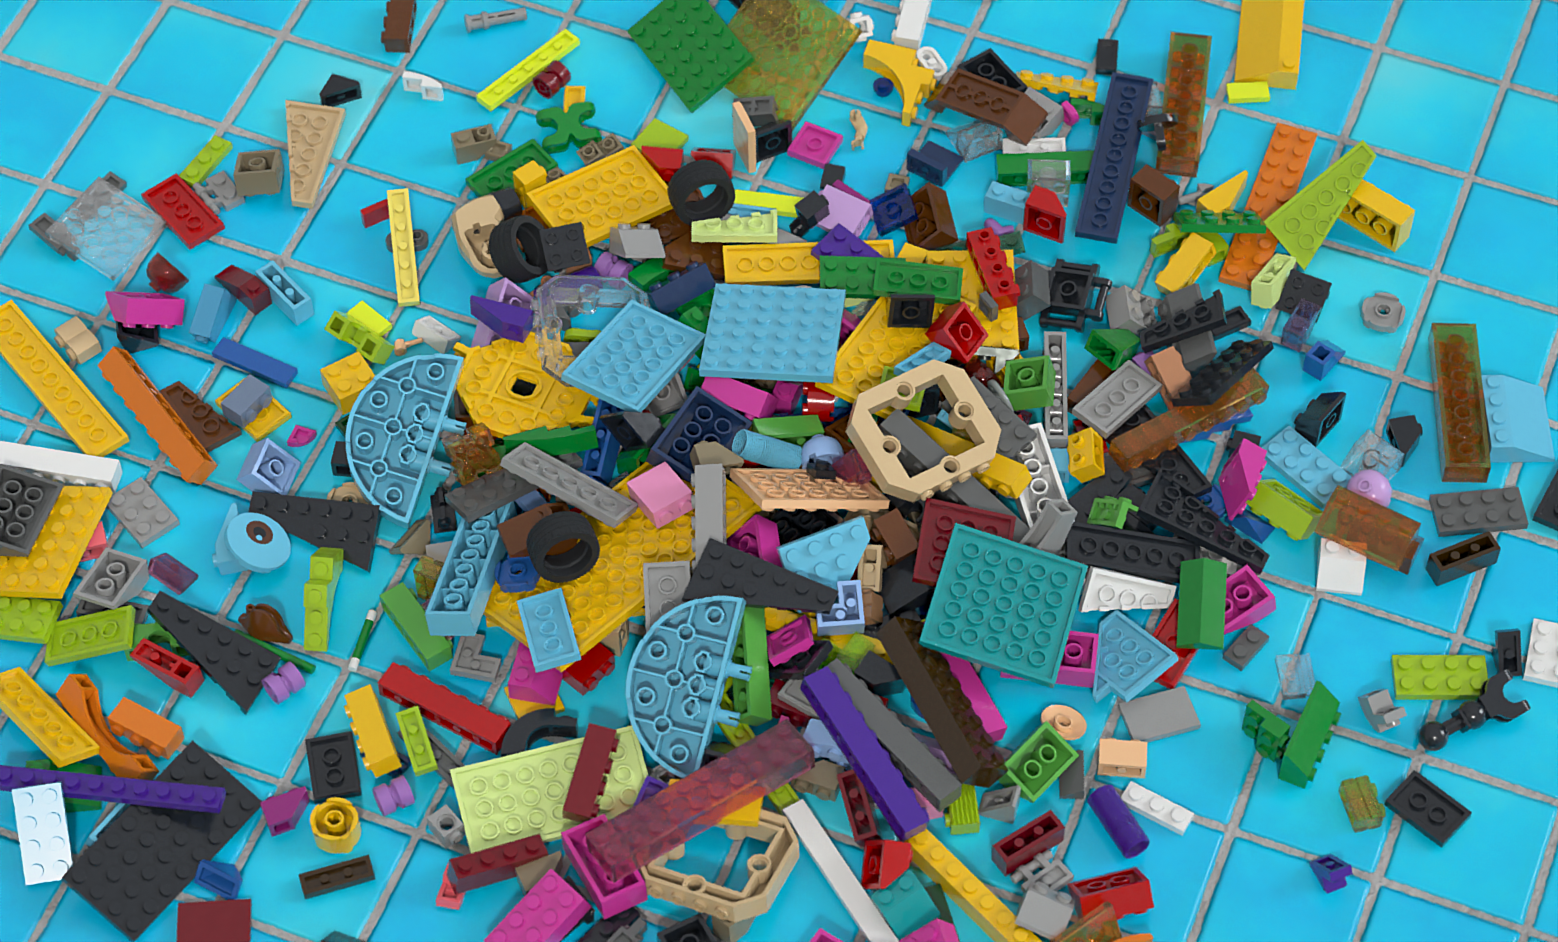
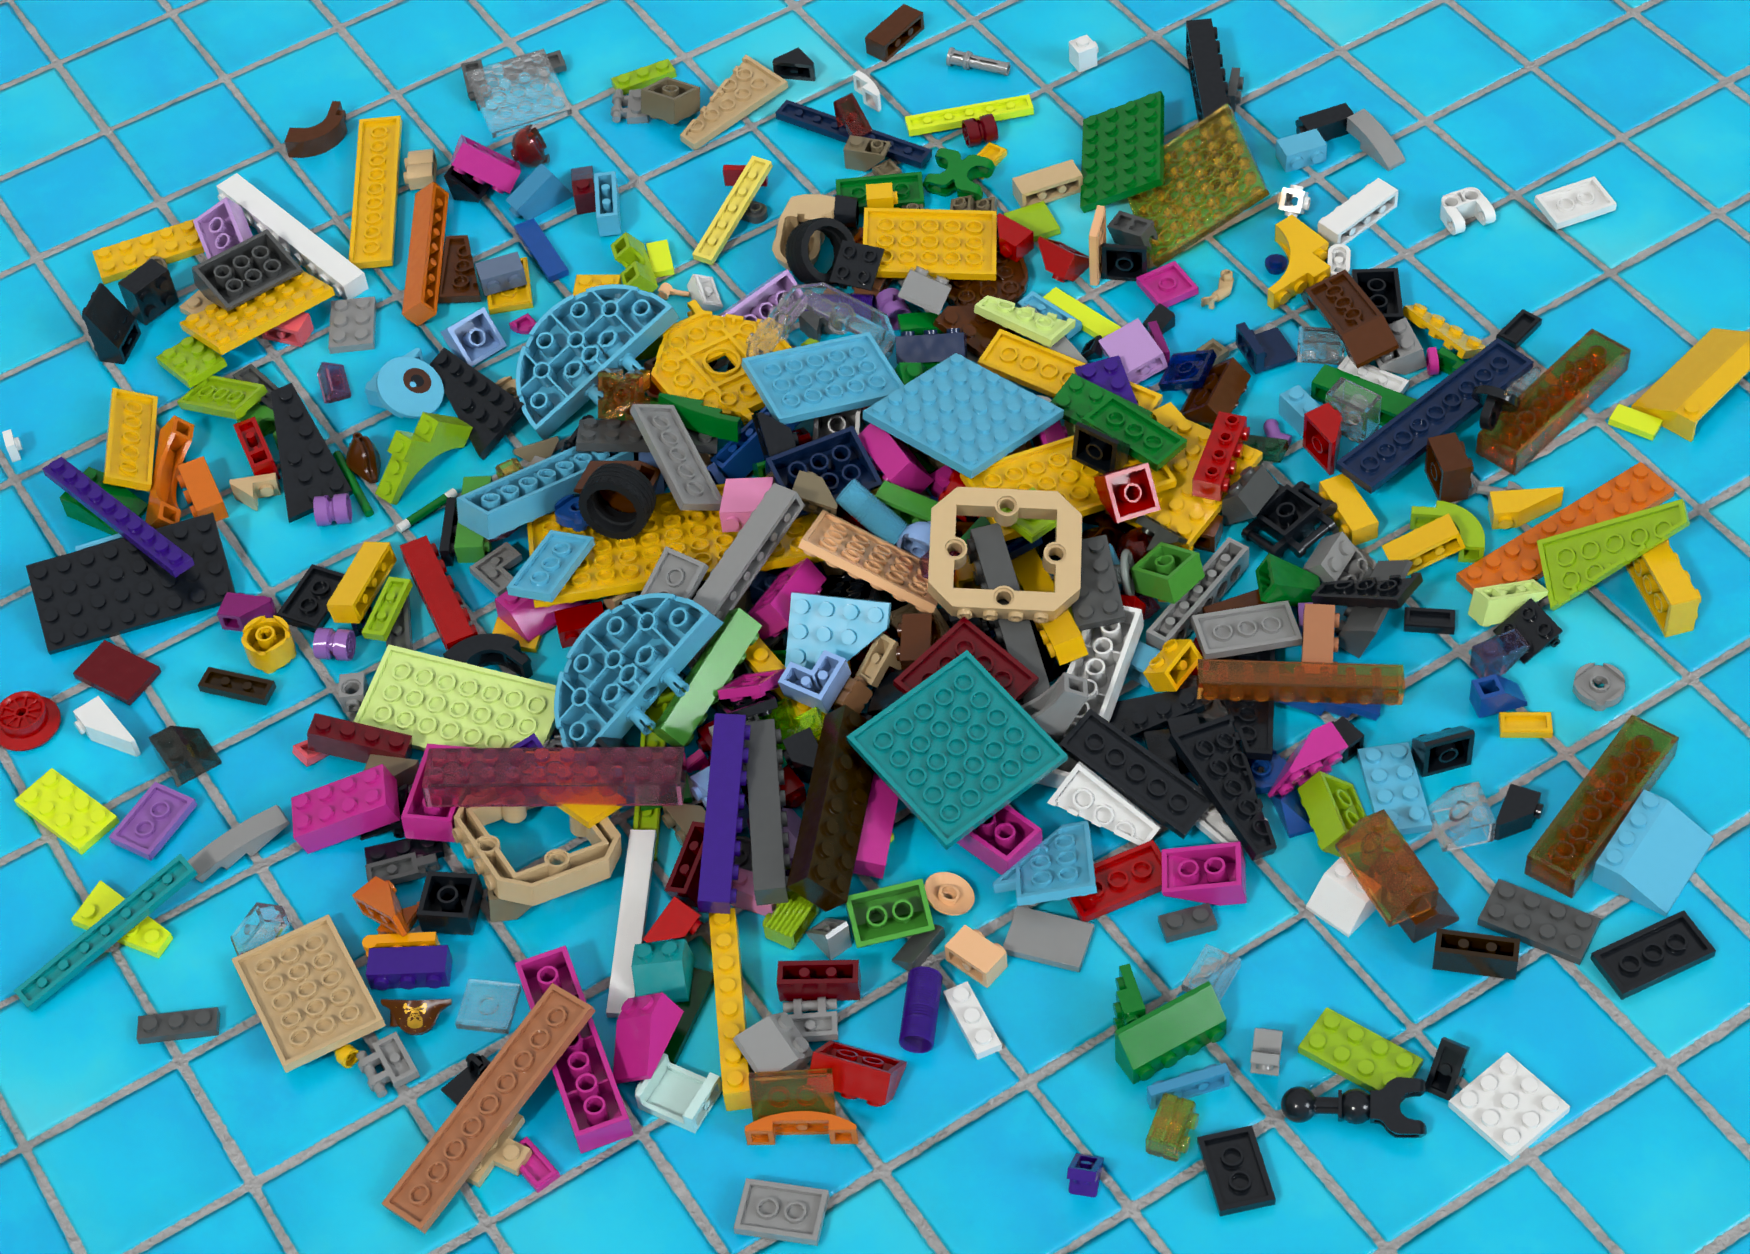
camera: 40 degrees right, 5 degrees down
(43, 832) = (49, 522): plate -> none
(113, 579) = (275, 362): light grey slope -> none
(183, 211) = (590, 107): red plate -> none
(189, 704) = (251, 488): none -> tan slope
(219, 878) = (152, 637): blue slope -> none
(404, 646) = (449, 532): none -> black plate
(437, 130) = (827, 125): none -> dark blue plate
(438, 115) = (851, 116): none -> clear red slope
(504, 319) = (751, 299): dark purple slope -> none
(590, 772) = (493, 707): dark red brick -> none
(647, 102) = (1047, 184): none -> tan brick
(695, 176) = (1016, 251): black tyre -> none
(762, 584) = (748, 612): black wing -> none
(812, 209) = (1105, 332): black brick -> none
(821, 470) = (908, 554): black plate -> none
(928, 353) = (1080, 498): medium azure plate -> none
(988, 306) = (1187, 486): dark grey tile -> none
(1110, 511) = (1144, 725): bright green bracket -> none
(1112, 265) = (1352, 513): none -> yellow brick
(1202, 604) = (1166, 855): green slope -> none
(1222, 373) = (1368, 655): black plate -> none
(1223, 222) = (1481, 516): green plate -> none
(1347, 766) = (1190, 1084): none -> dark azure plate
(1355, 369) = (1525, 725): none -> yellow tile
(1372, 486) = (1433, 841): lavender cylinder -> none

